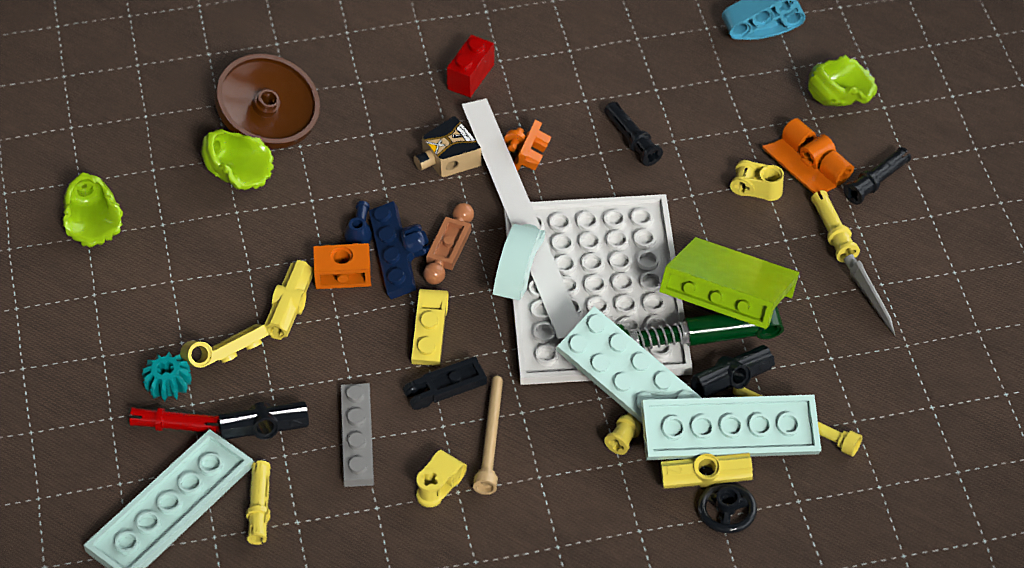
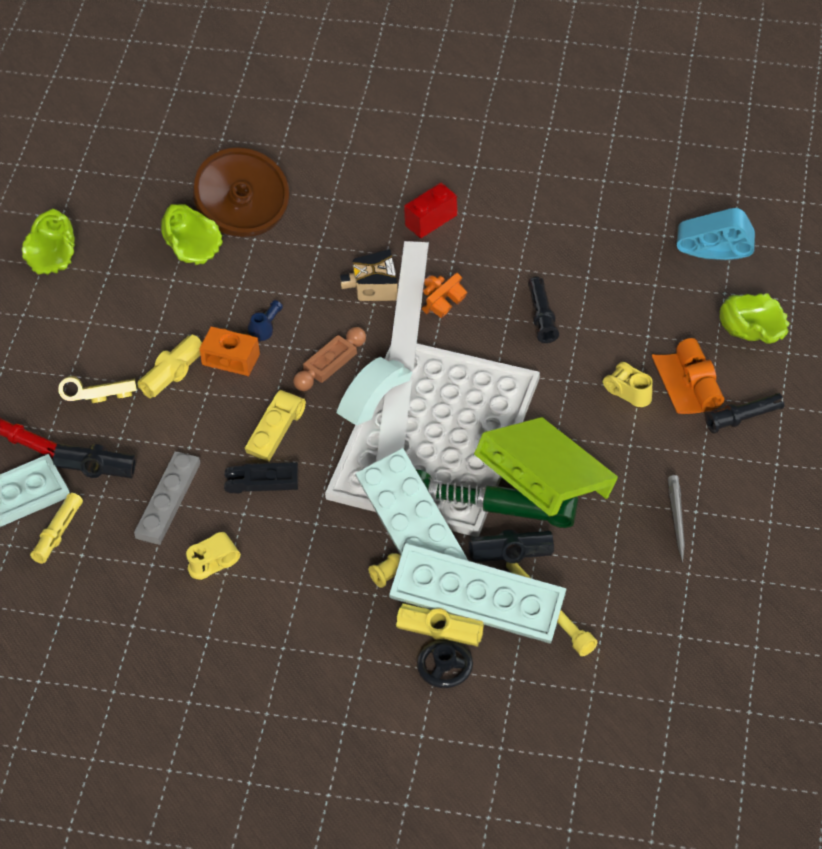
camera: 25 degrees right, 0 degrees up
(166, 376) = (39, 399): teal gear -> none
(397, 248) = (284, 348): dark blue plate -> none
(485, 479) = (251, 569): tan piece -> none
(838, 234) = (677, 454): light yellow pin -> none

